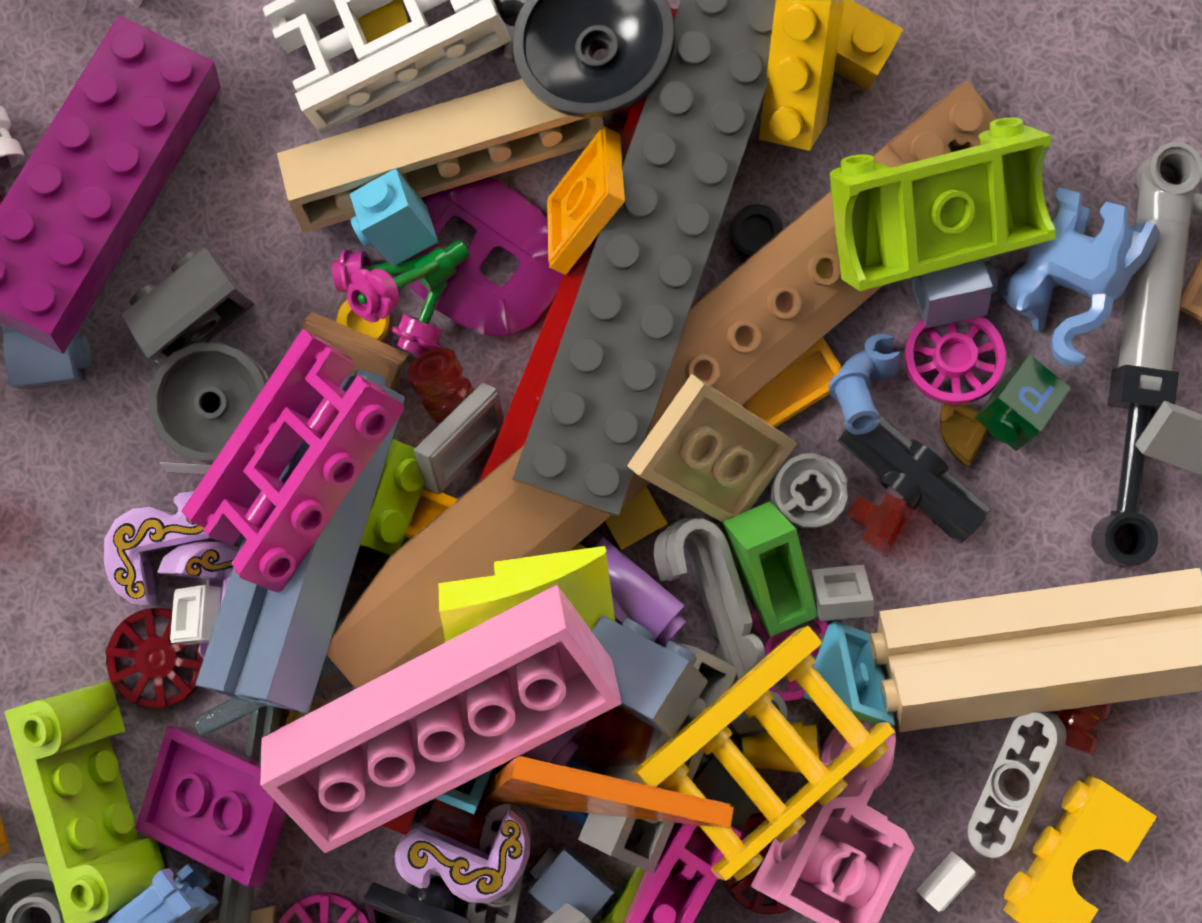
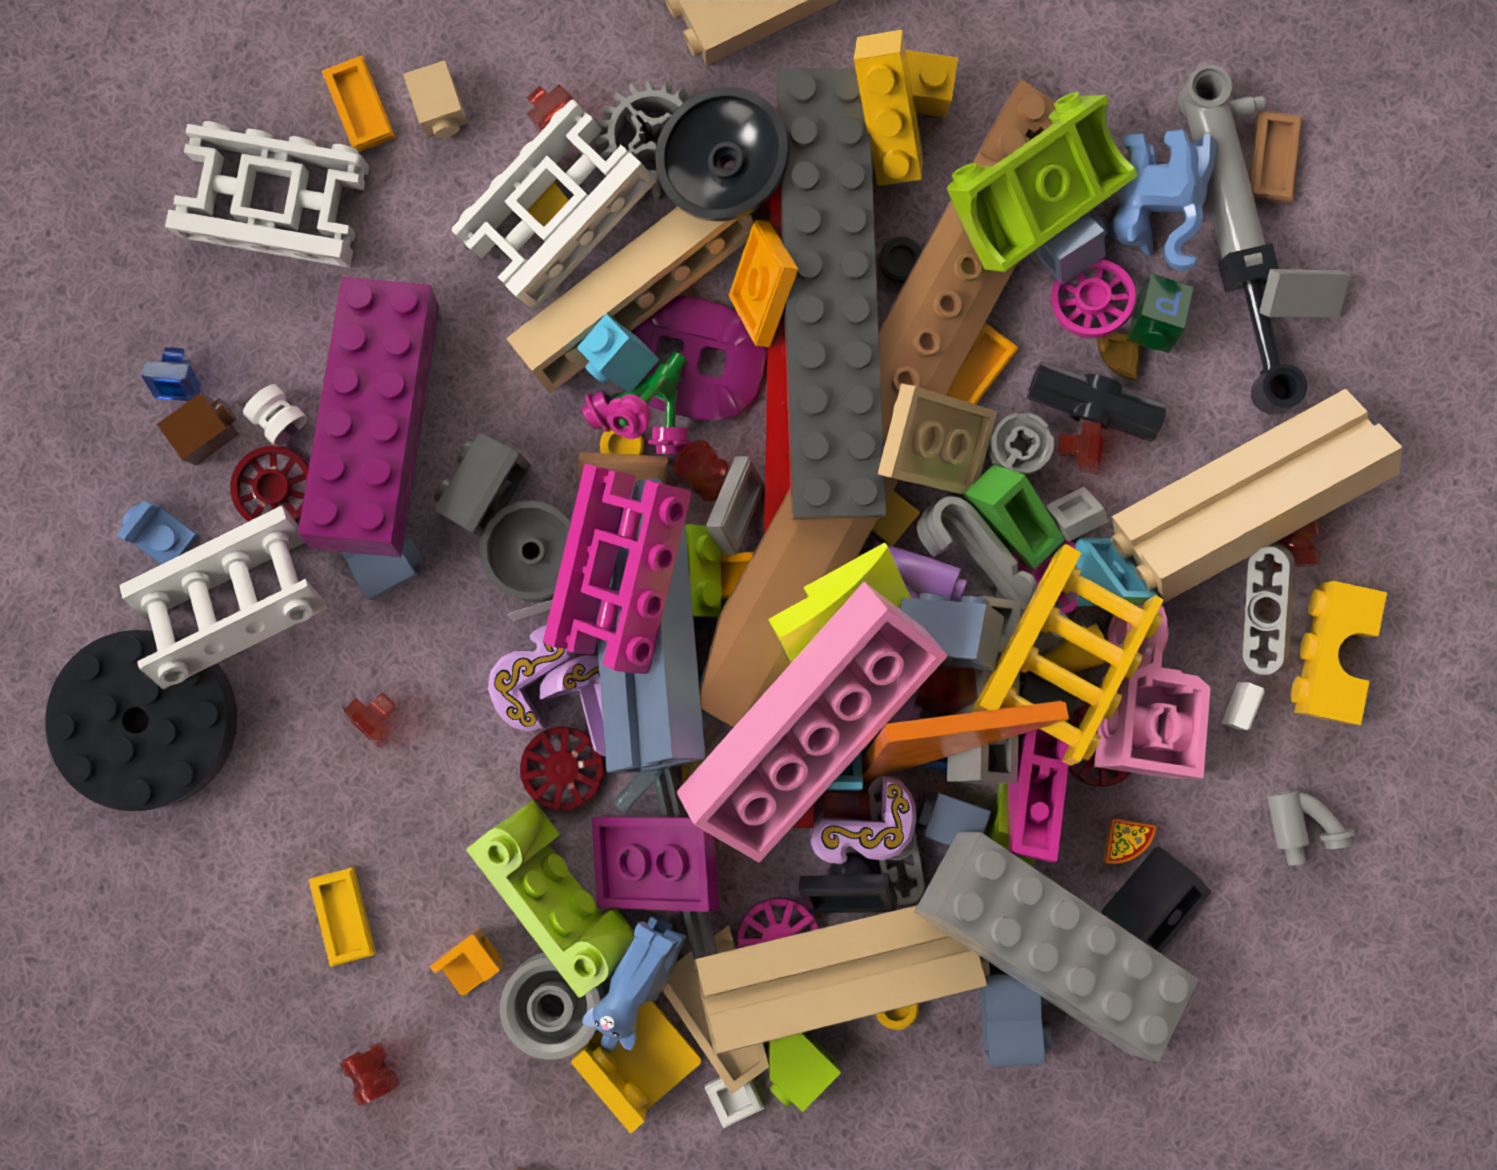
camera: 15 degrees left, 0 degrees up
(194, 614) = (582, 721): white tile -> none
(853, 382) = (1023, 344): medium blue piece -> none

